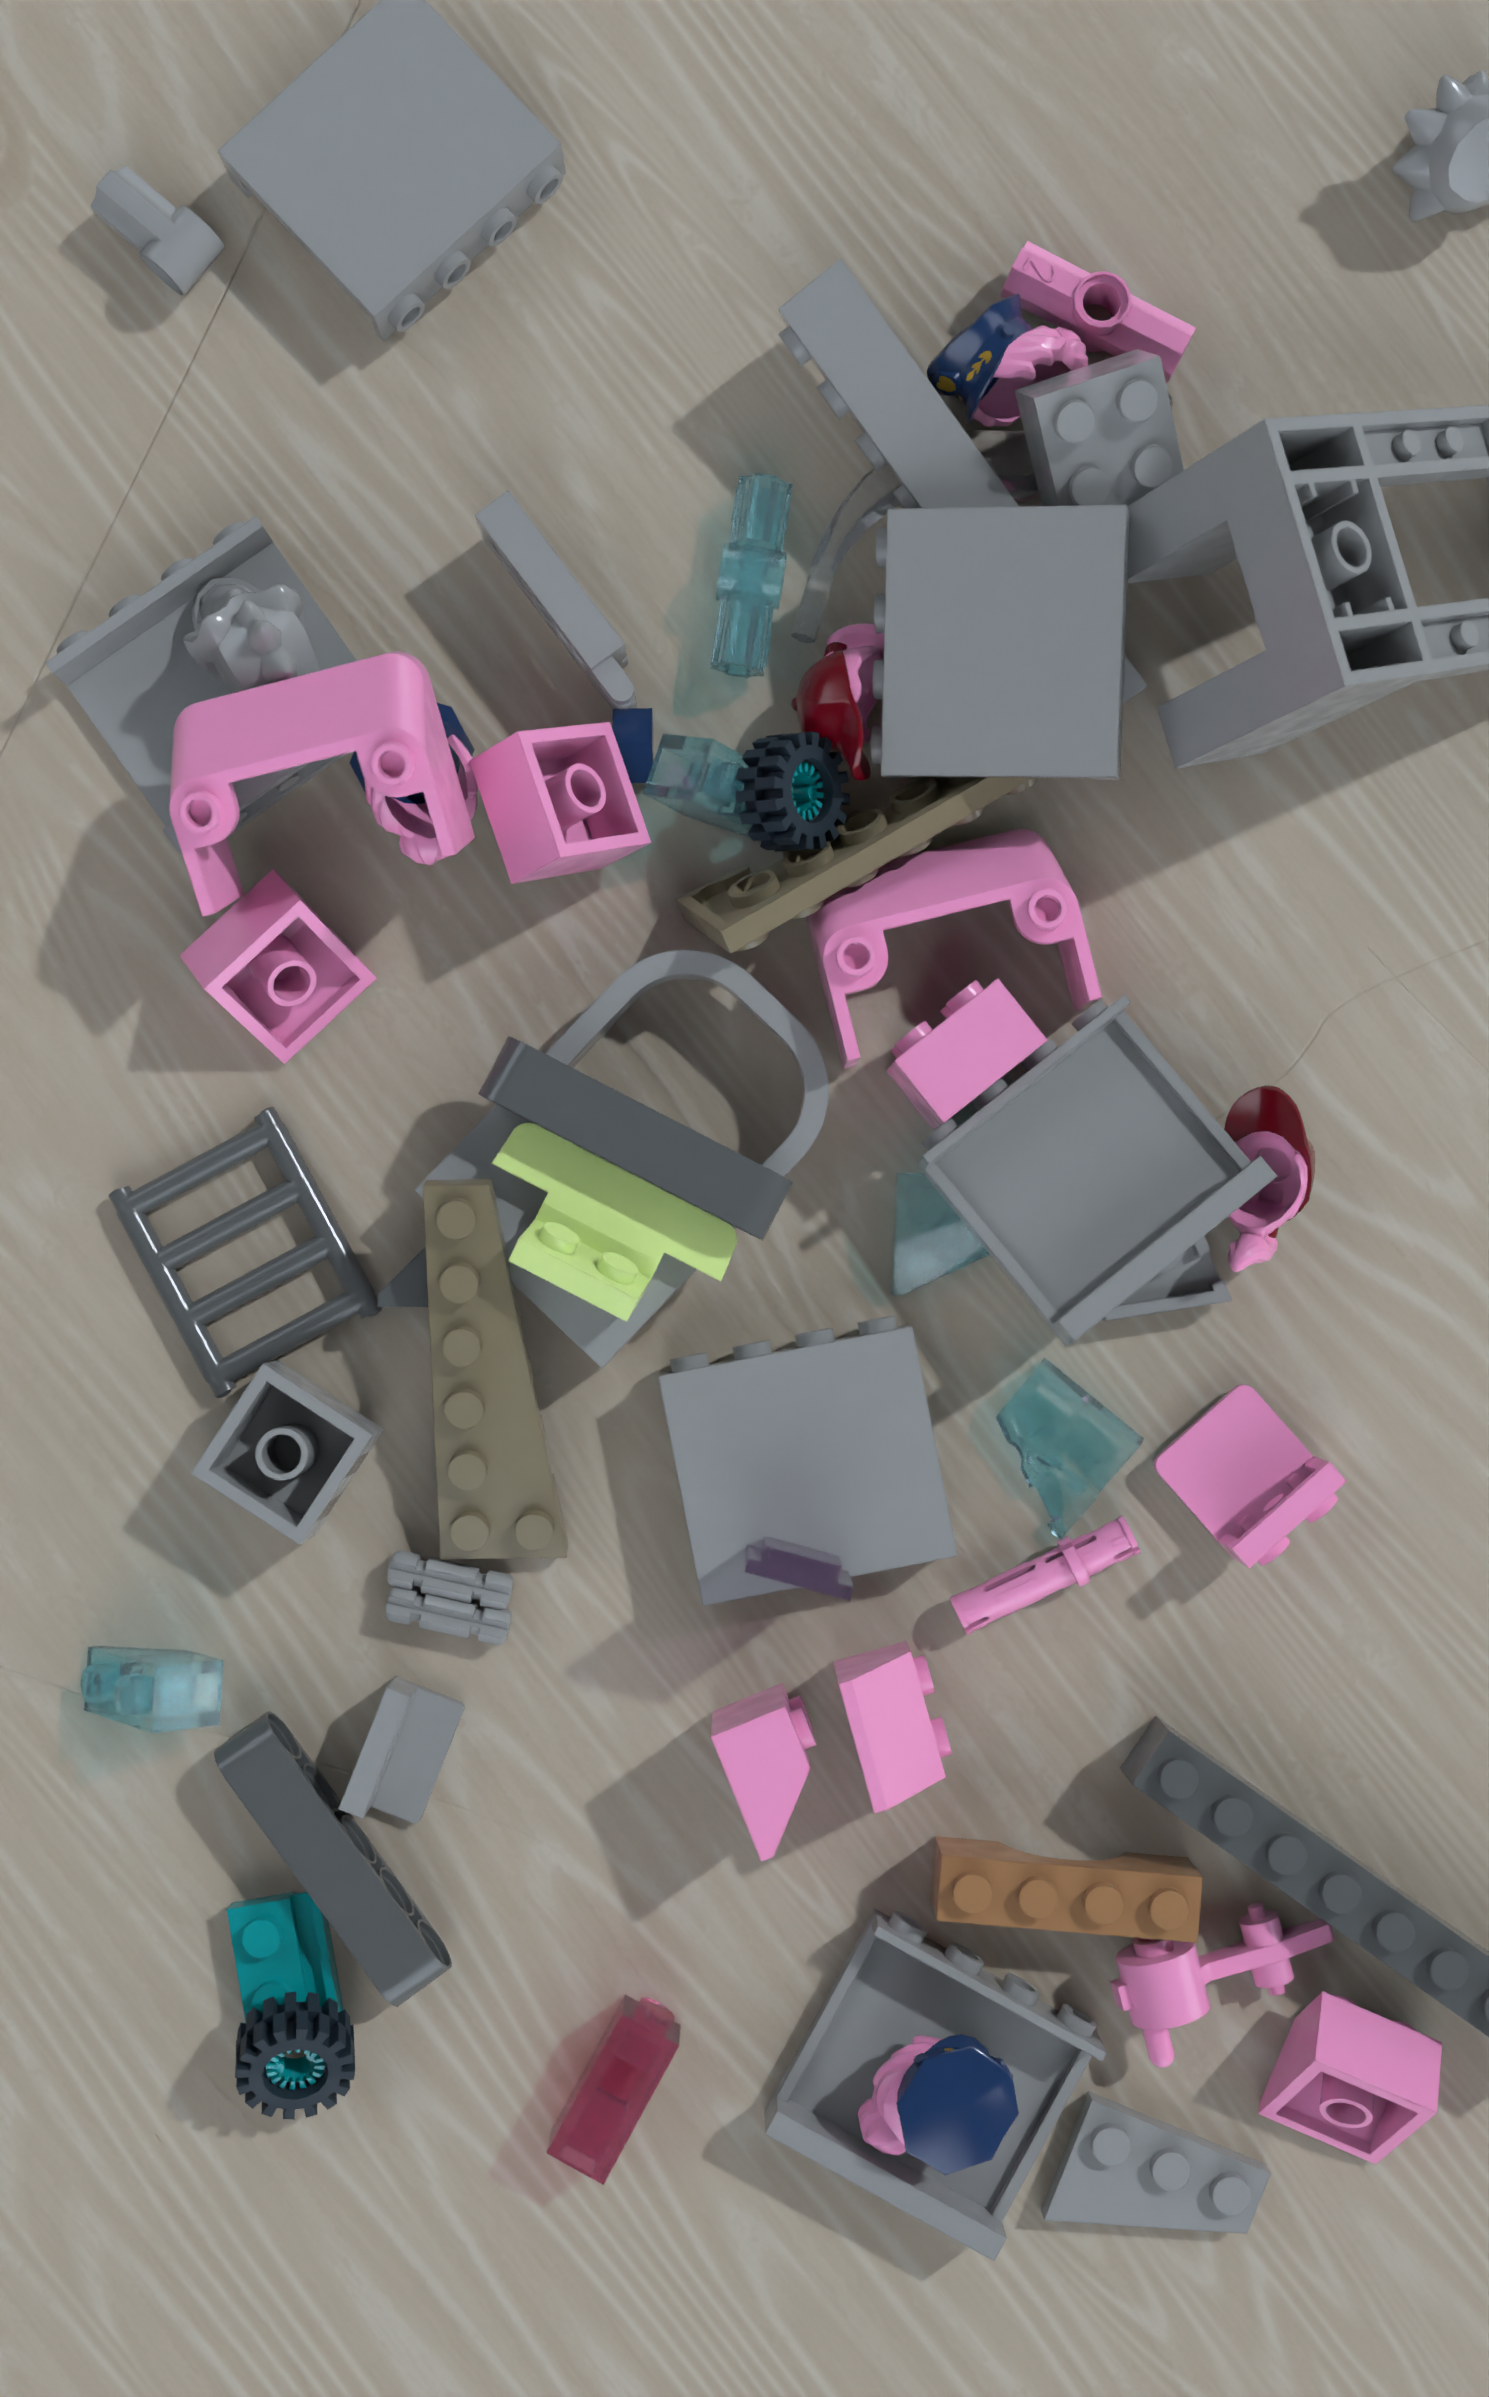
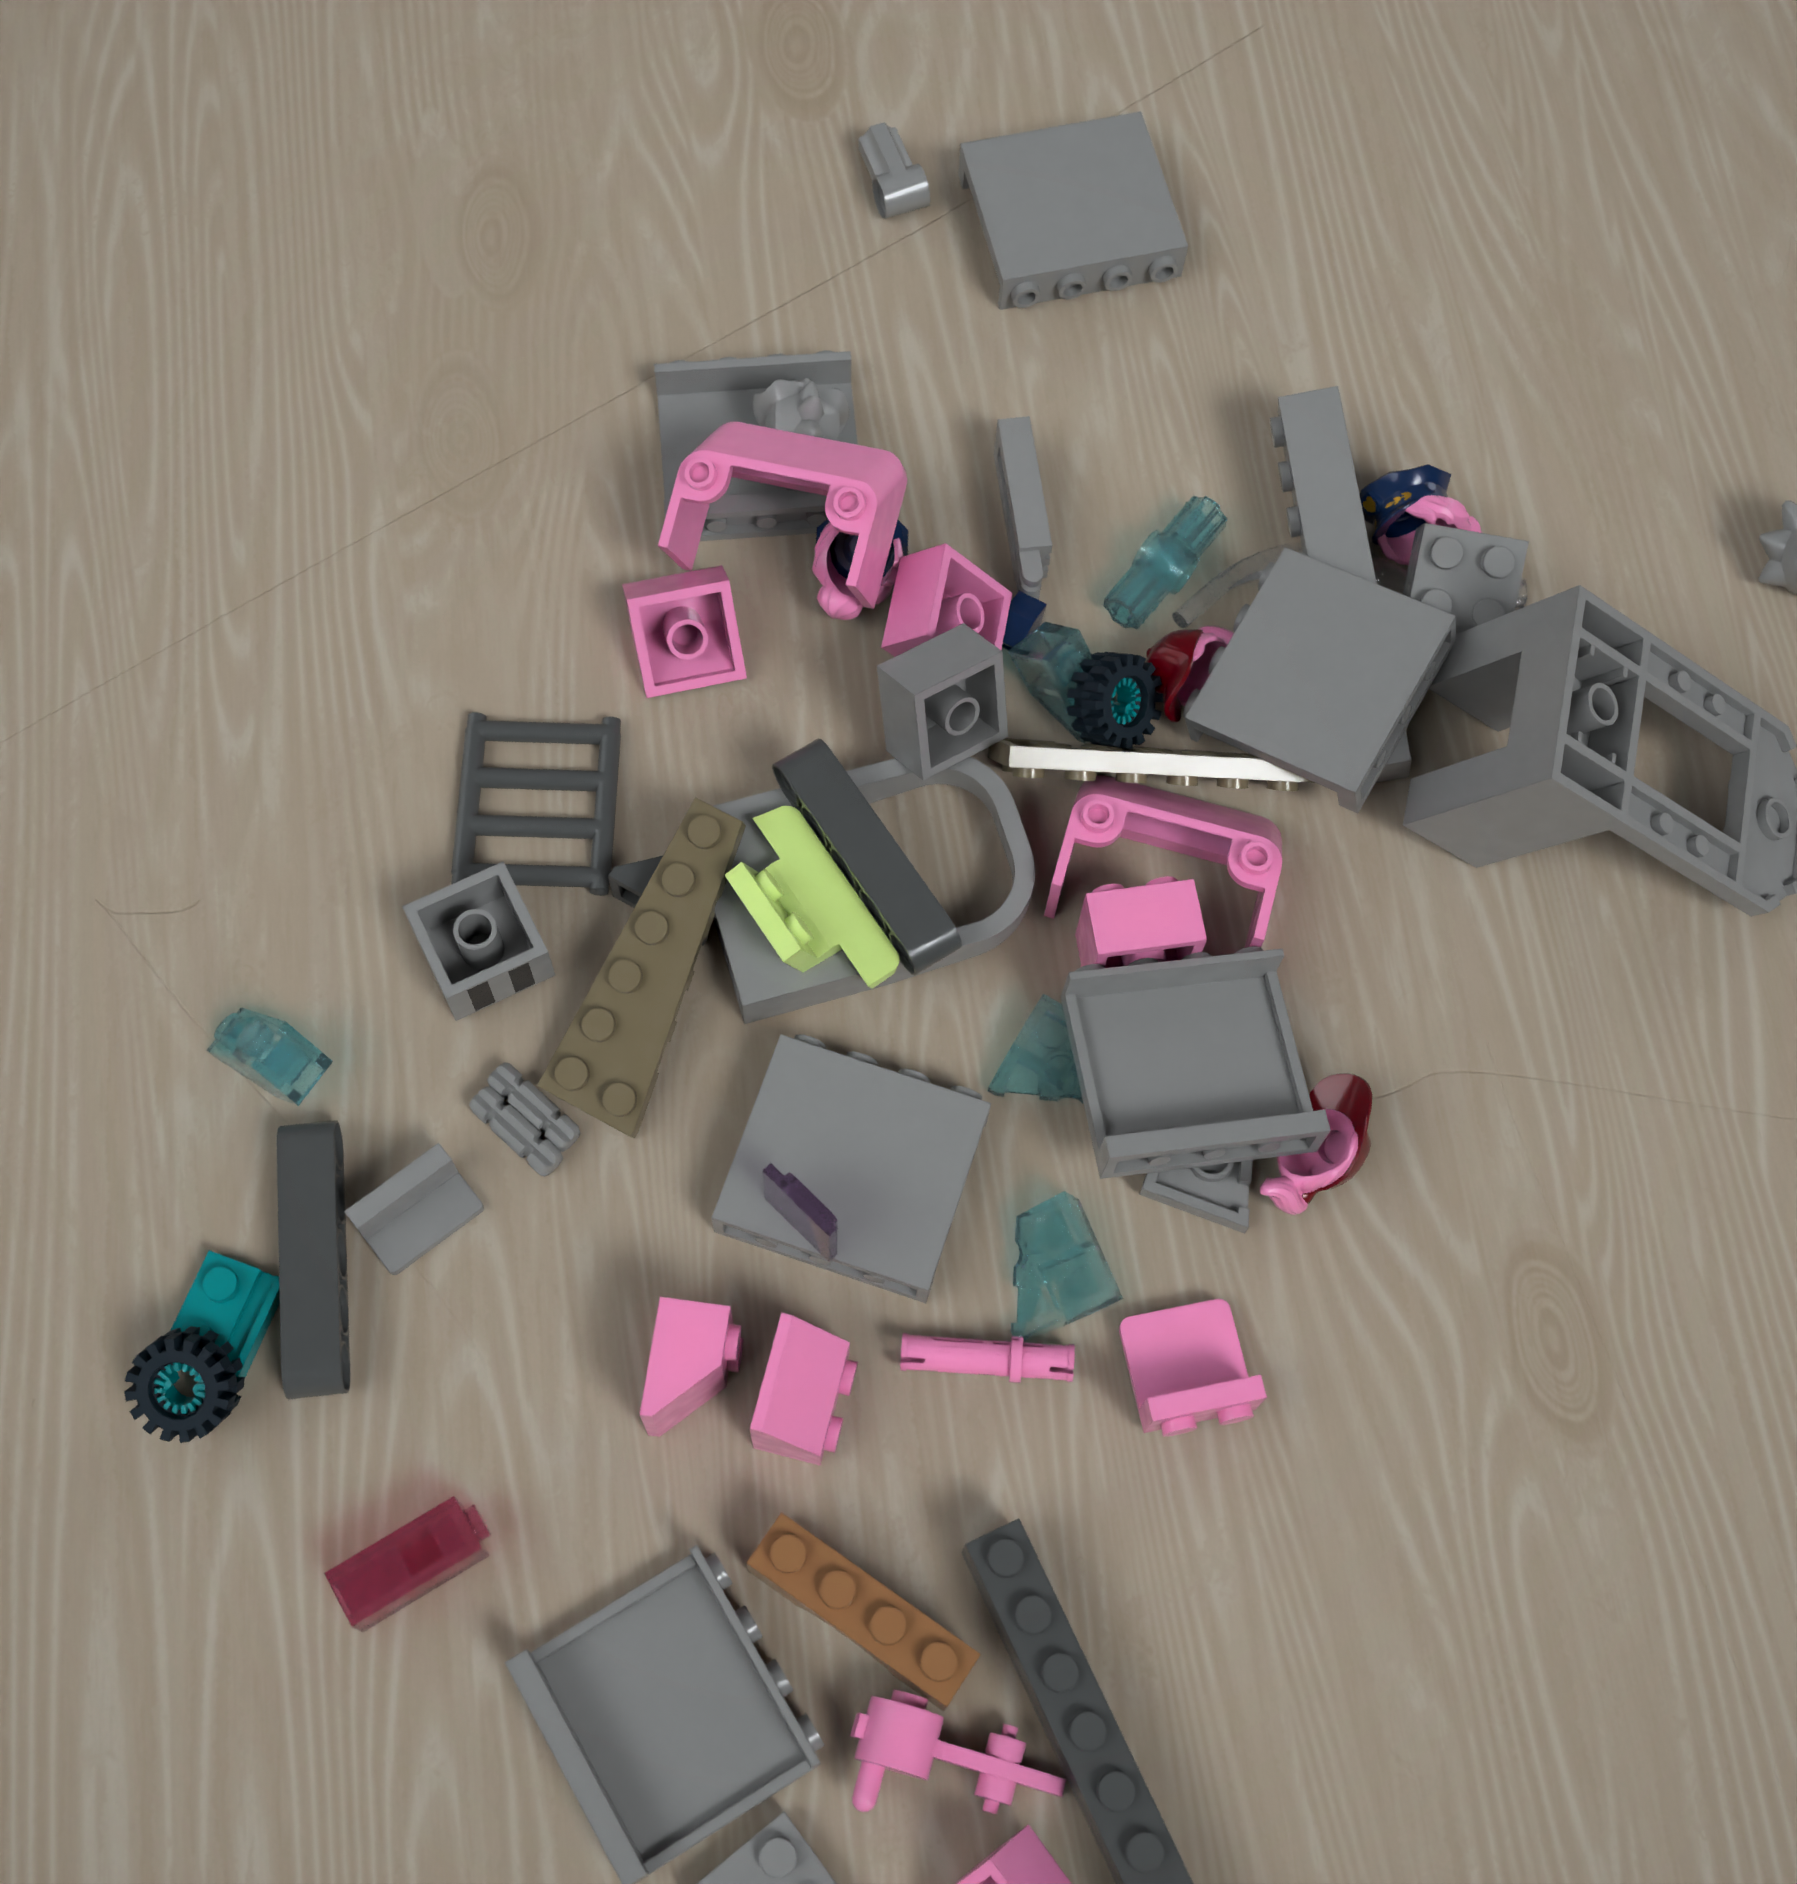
camera: 30 degrees right, 20 degrees down
(618, 918) = (943, 701): none -> light grey brick
(940, 2103) = (660, 1723): dark blue piece -> none
(1061, 290) = (1491, 505): bright pink piece -> none

